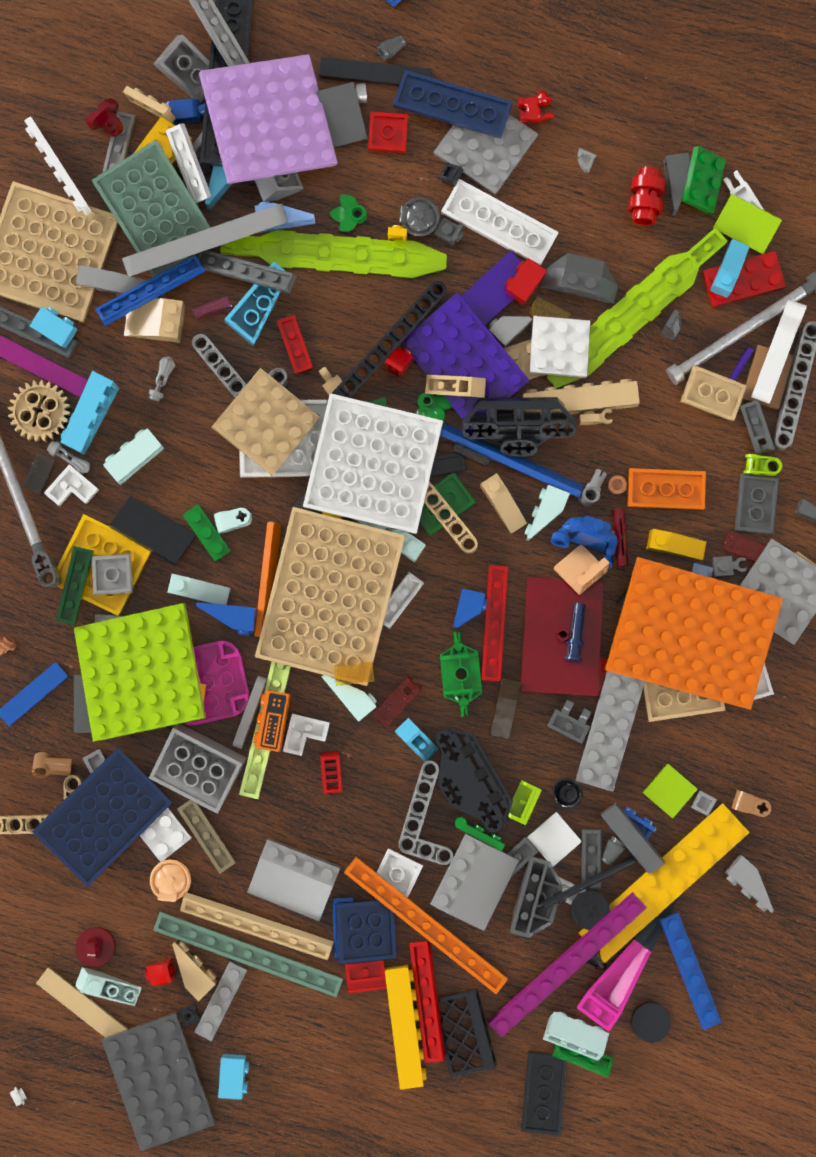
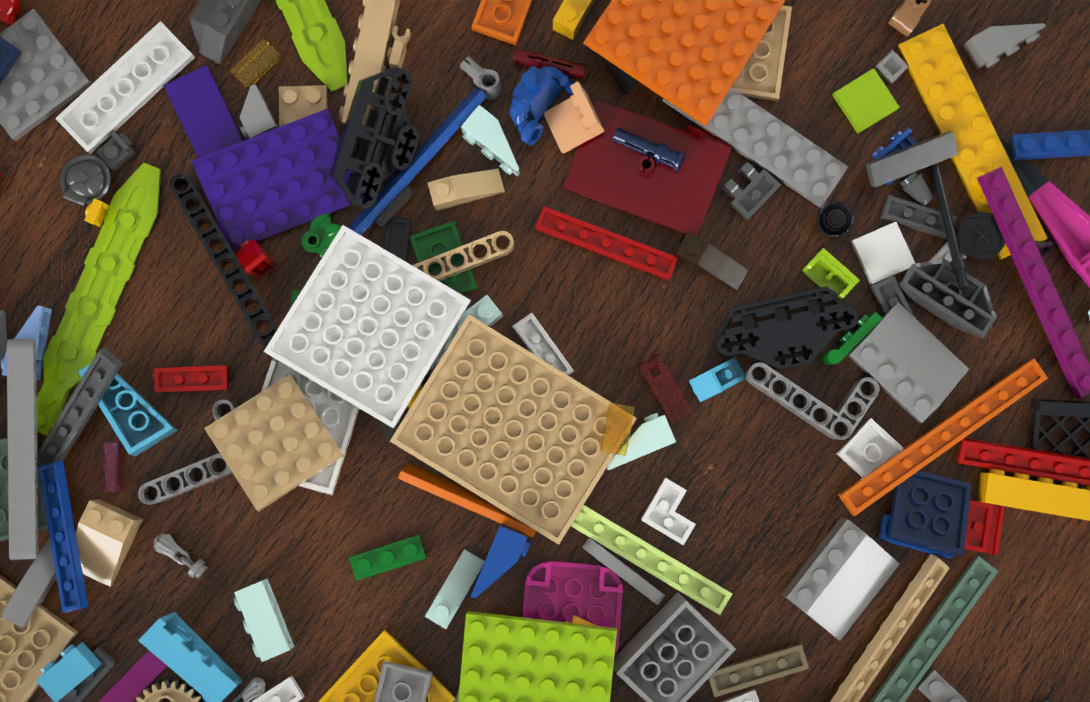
camera: 70 degrees left, 0 degrees up
(152, 530) = (363, 624): black tile -> none
(229, 520) = (381, 525): light aqua piece -> none
(272, 721) = (644, 547): brick -> none
(330, 756) = (705, 492): red slope -> none
(331, 382) = (252, 349): tan plate -> none
(345, 213) = (50, 267): green plate -> none
(451, 174) = (46, 126): black tile -> none
(453, 688) = (635, 307): green plate -> none
(455, 386) = (305, 198): tan slope -> none
(469, 607) = (578, 266): blue slope -> none
(525, 281) = (206, 77): red brick -> none
(559, 347) = (299, 62): white plate -> none
(617, 485) = (486, 49): nougat tile -> none

